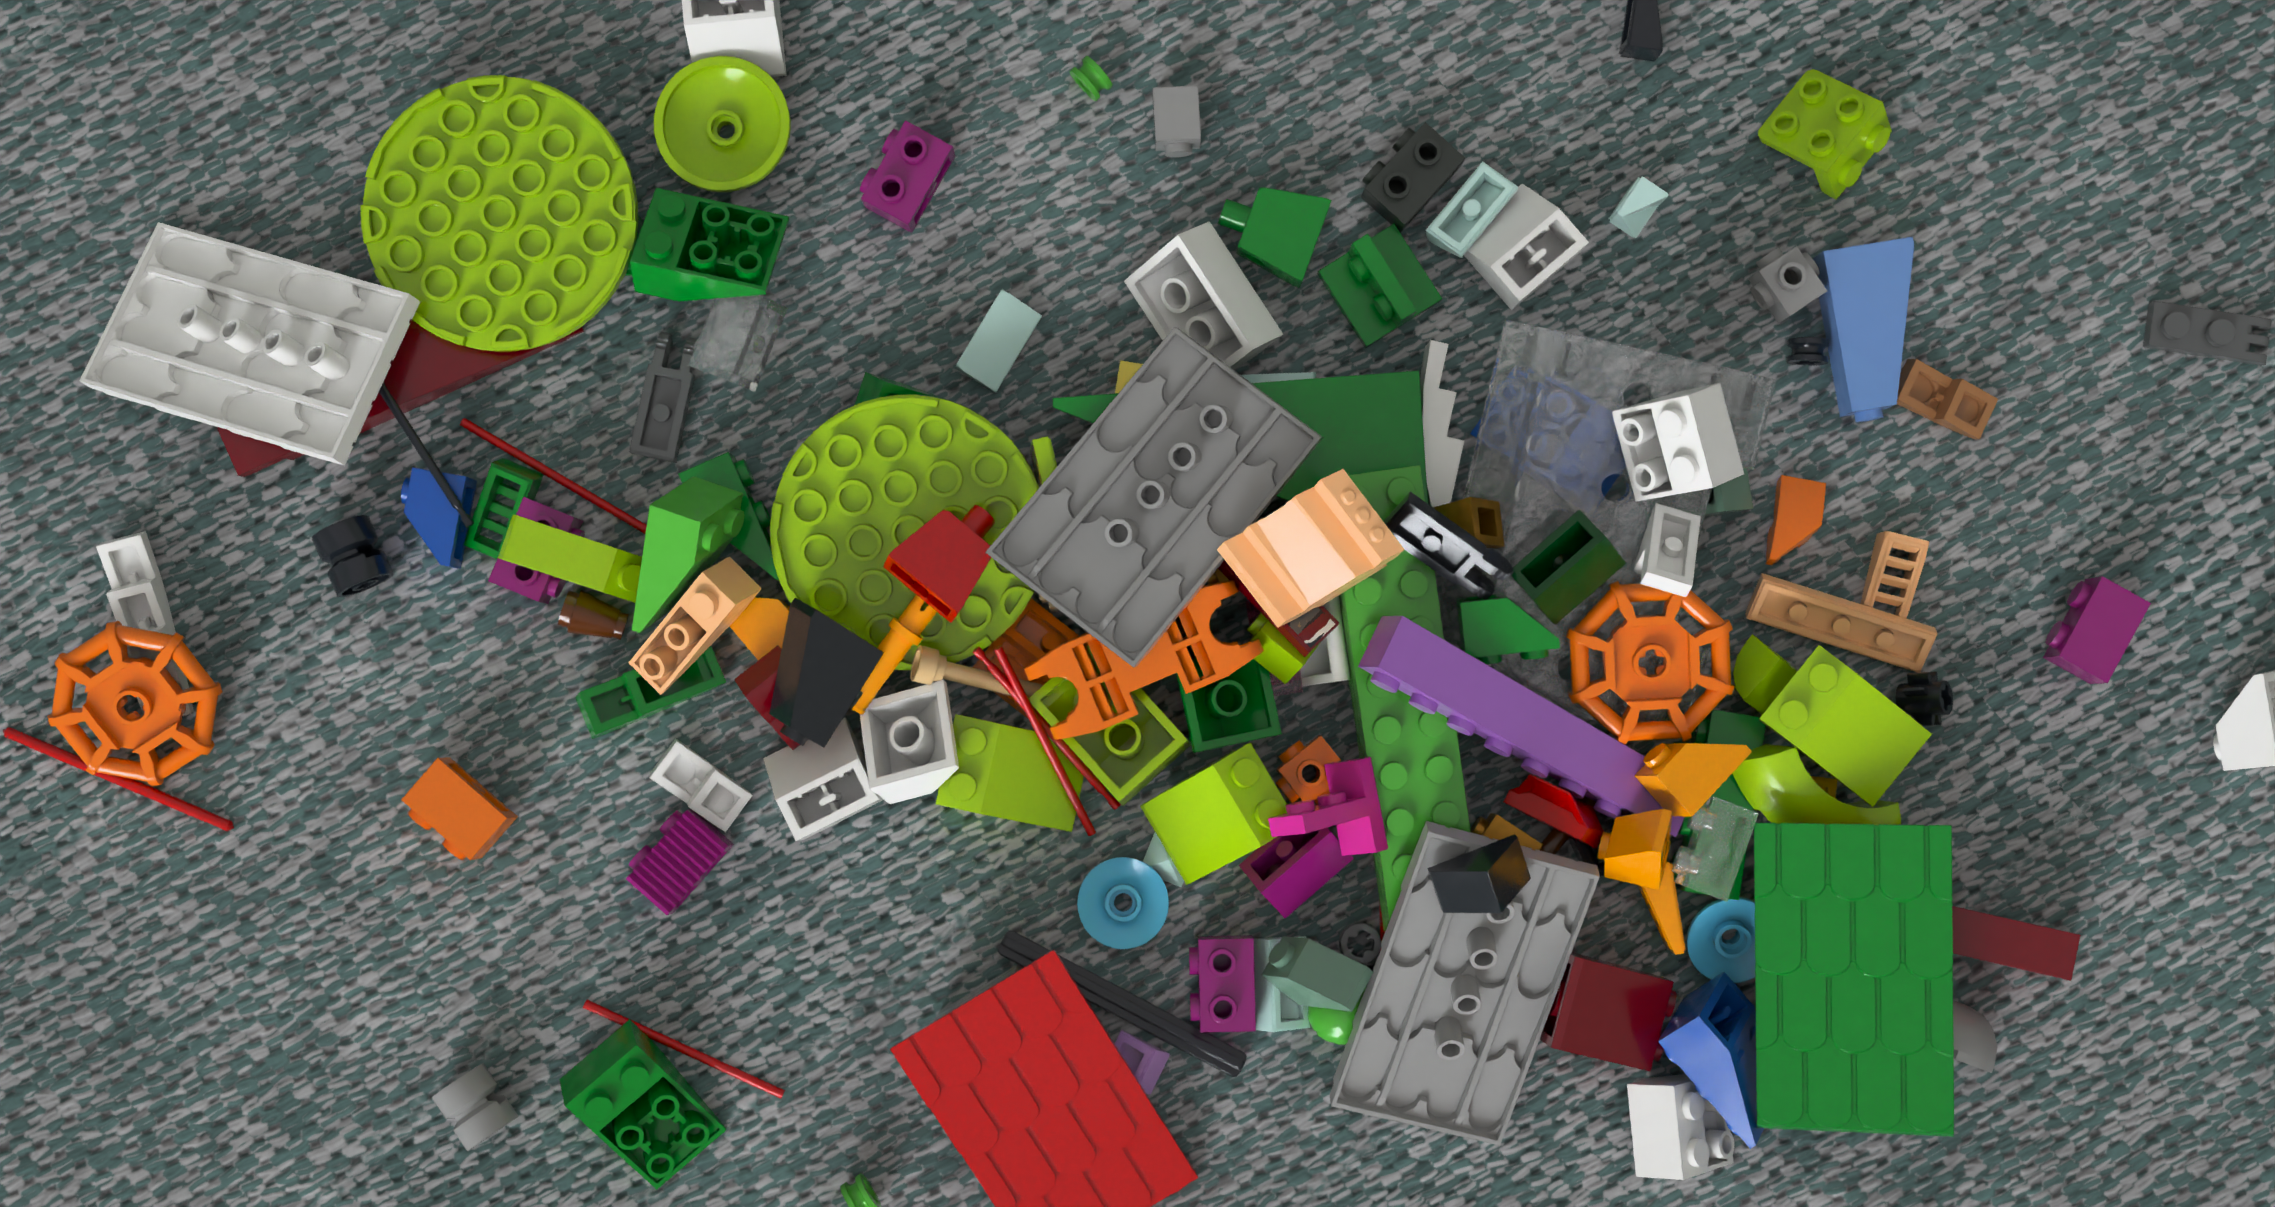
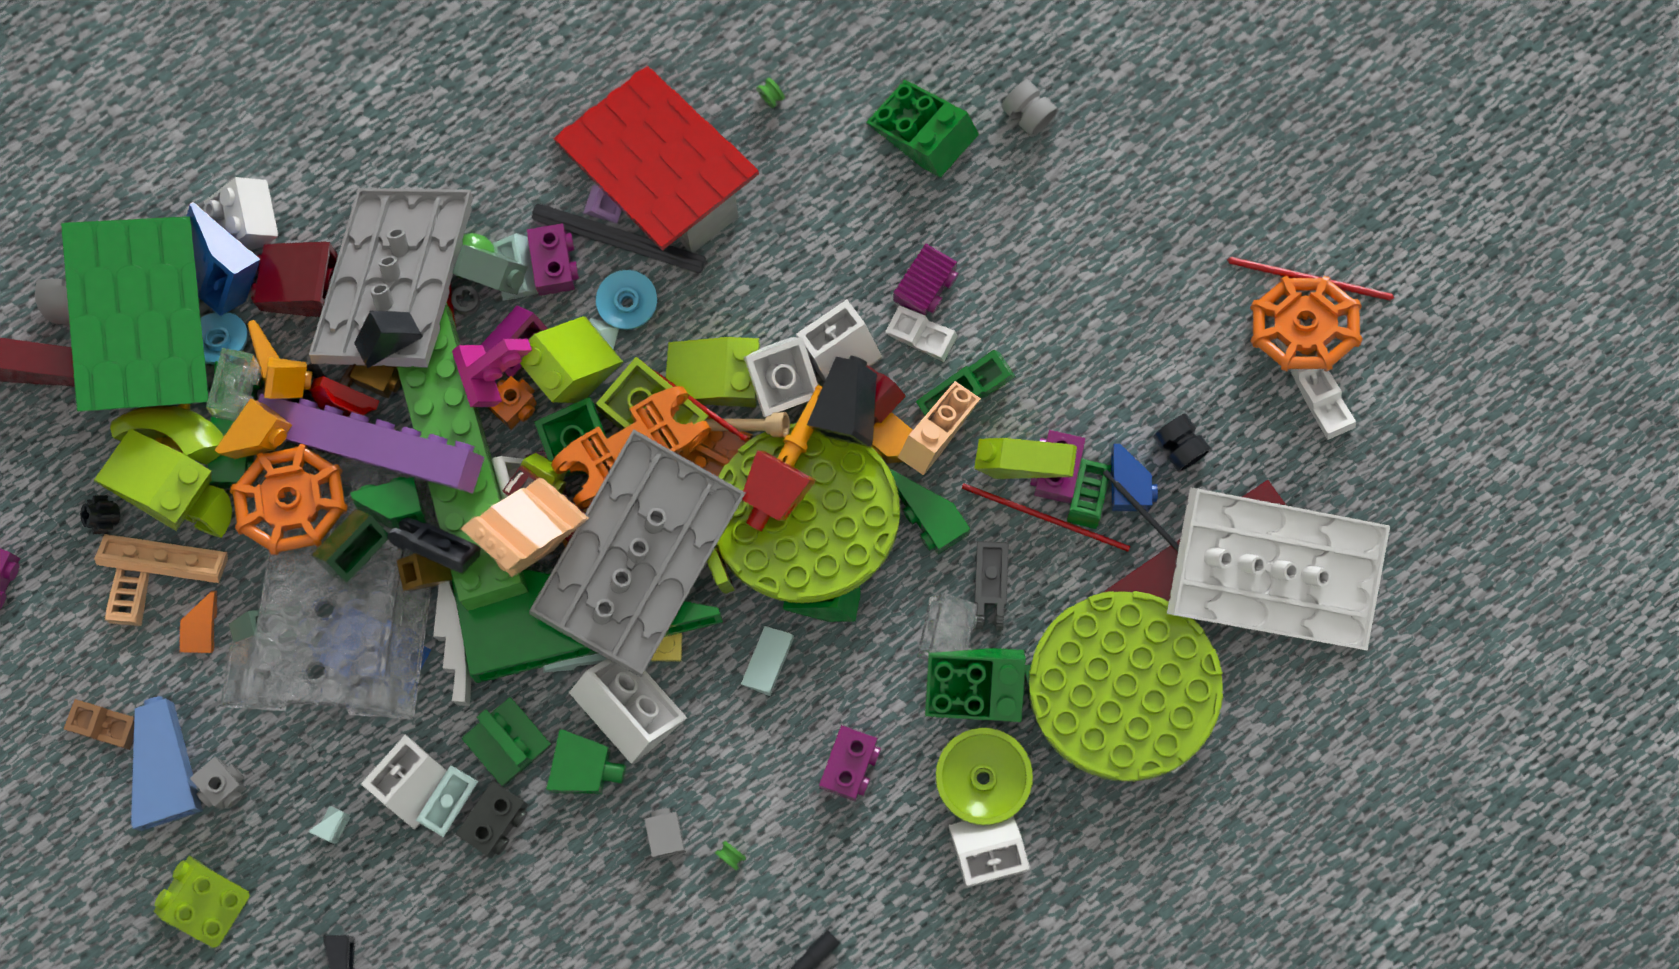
camera: 175 degrees right, 10 degrees down
(458, 809) = (1077, 289): orange brick -> none
(591, 616) = (1013, 428): reddish brown cone -> none
(683, 539) = (952, 477): bright green slope -> none
(689, 1051) = (901, 167): red piece -> none
(1044, 740) = (692, 391): red piece -> none
(1669, 550) = (282, 567): white slope -> none
(1678, 443) = (282, 638): white slope -> none
(1807, 351) = (200, 740): black bush -> none

